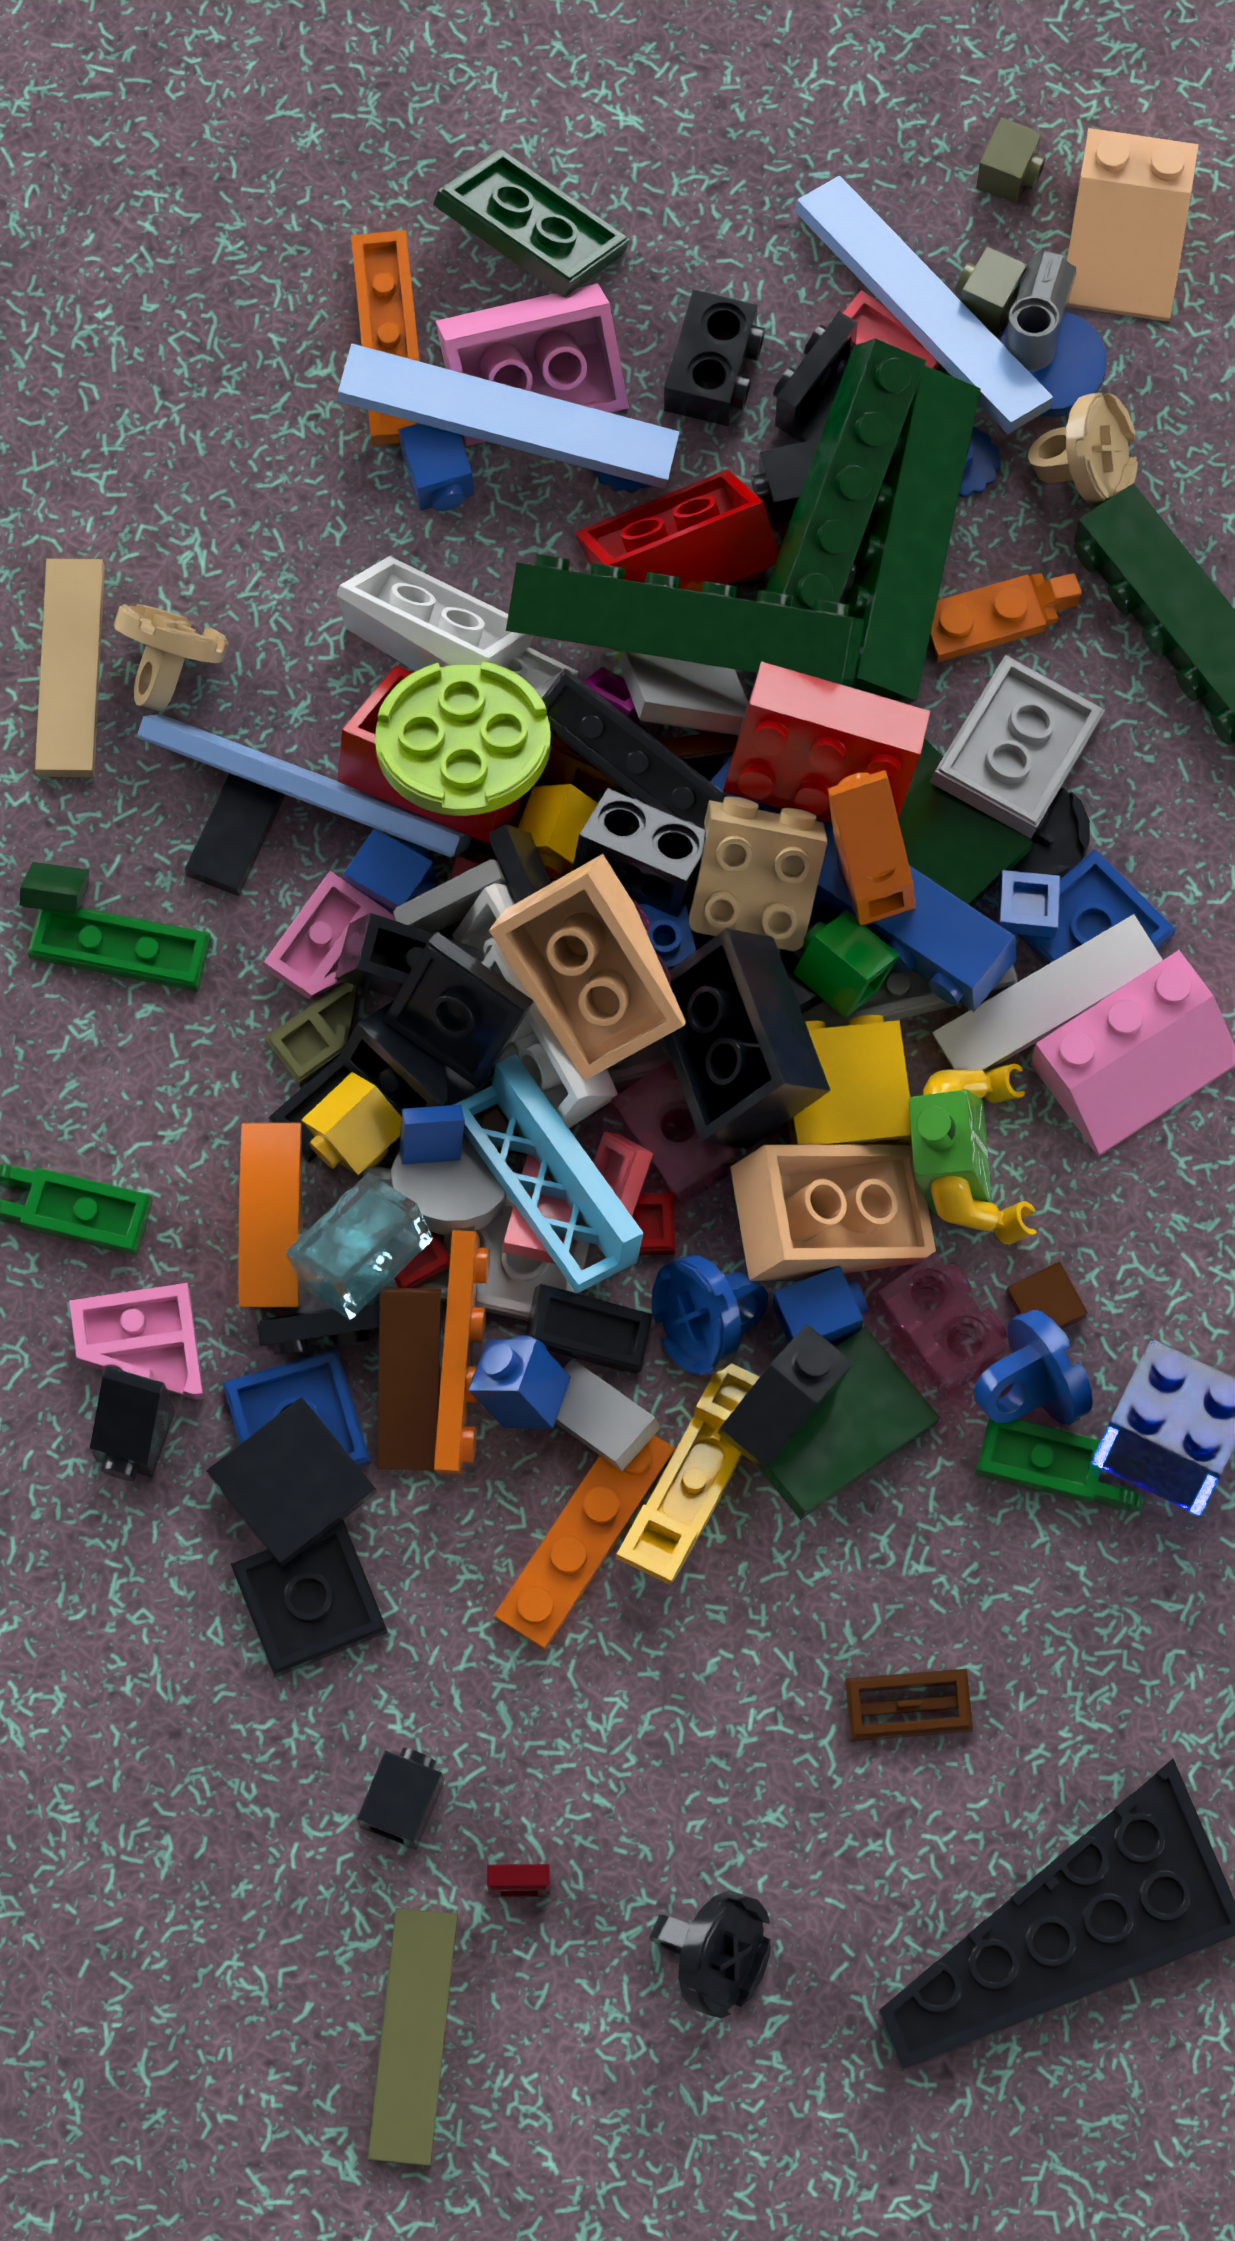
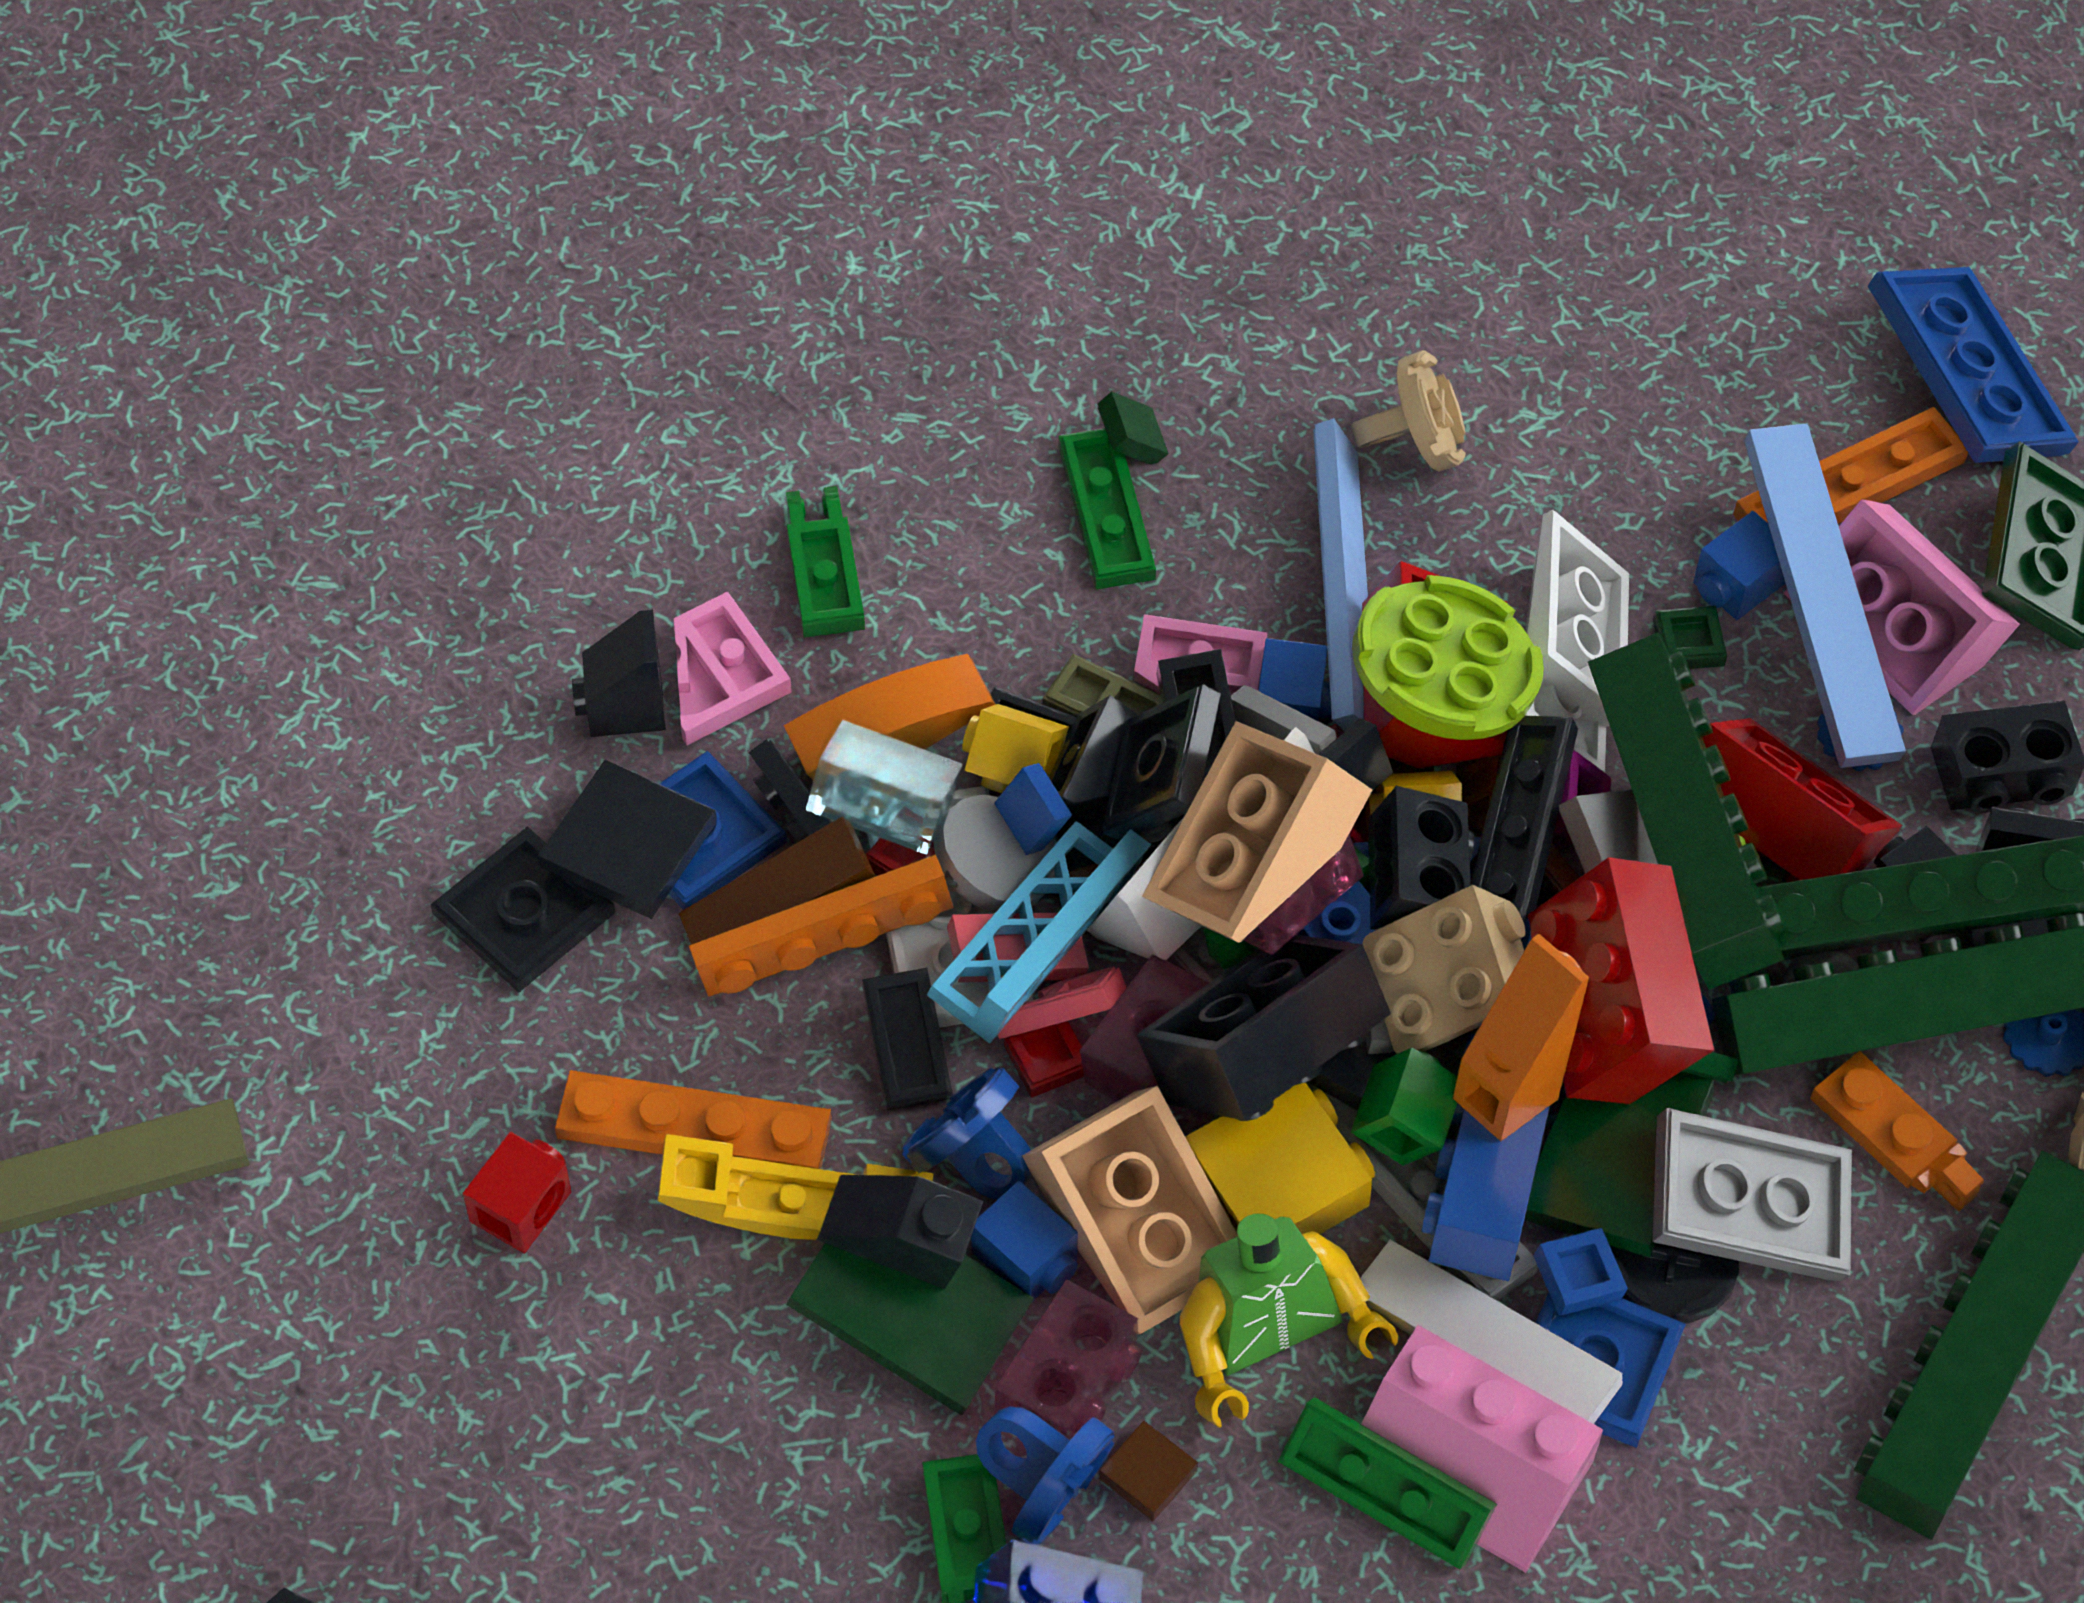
camera: 65 degrees right, 15 degrees down
(70, 668) = (1357, 364): tan tile -> none
(234, 834) = (1265, 554): black tile -> none
(317, 182) = (1971, 362): none -> blue tile
(401, 1797) = (345, 1057): black brick -> none
(478, 540) = (1695, 633): none -> dark green tile
(518, 1880) = (299, 1193): dark red tile -> none
(520, 1383) = (816, 989): blue brick -> none
(595, 1696) = (518, 1191): none -> red brick
(604, 1417) = (817, 1079): light grey tile -> none
(719, 1952) = (284, 1402): black tile -> none
(910, 1728) = (662, 1551): reddish brown tile -> none
(1136, 1129) = (1387, 1483): none -> green tile

